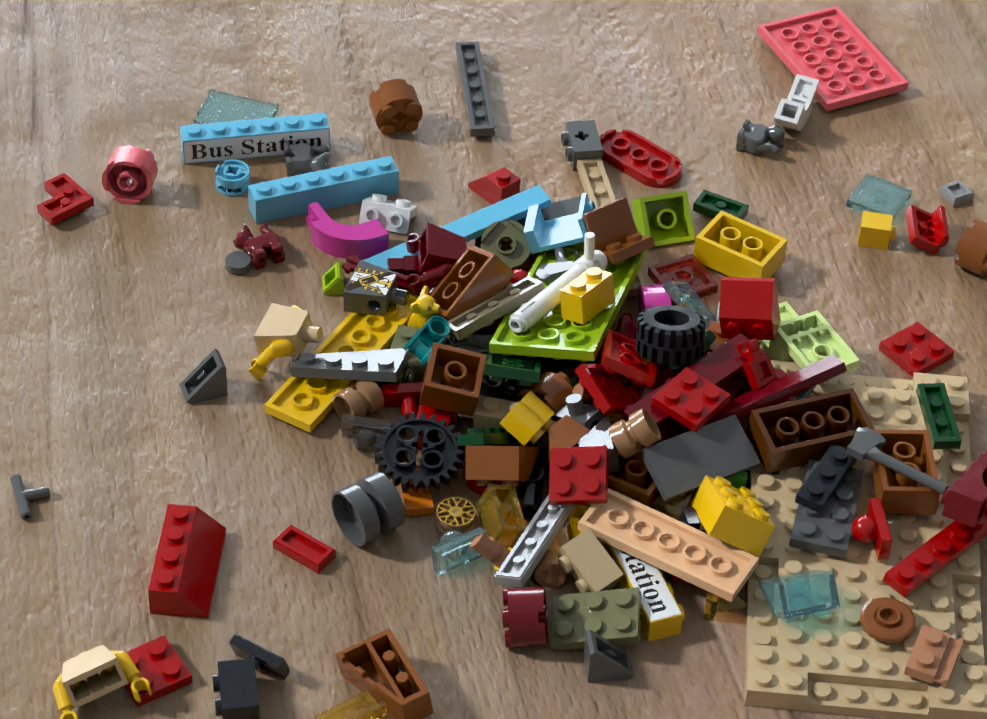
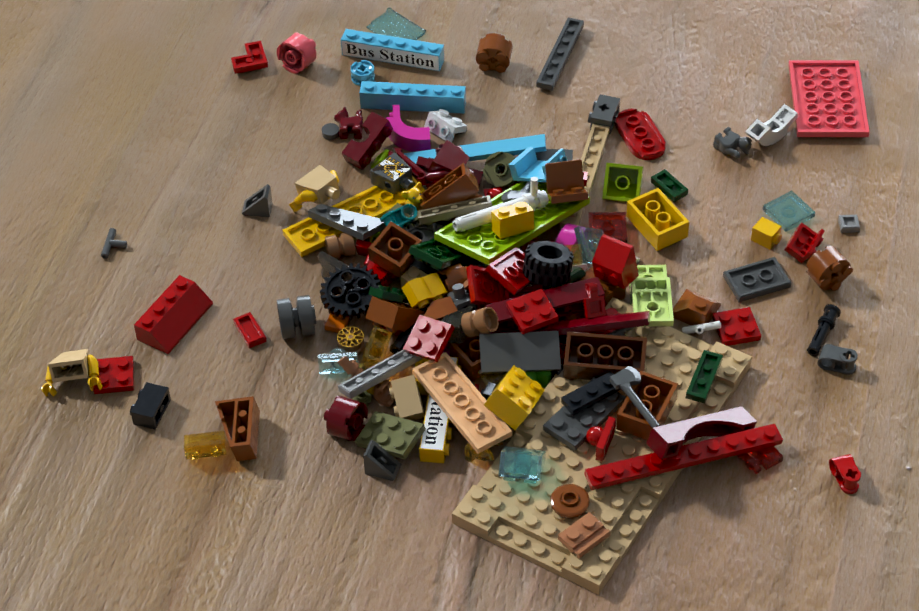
camera: 30 degrees right, 5 degrees up
(262, 657) = (176, 389): black plate -> none
(300, 158) = (415, 72): dark grey animal -> none
(303, 277) = (361, 153): none -> dark red arch
(496, 185) = (526, 126): red slope -> none
(864, 341) = (695, 308): none -> dark orange slope
(883, 362) = (700, 328): none -> white piece
(899, 288) = (757, 279): none -> dark grey tile

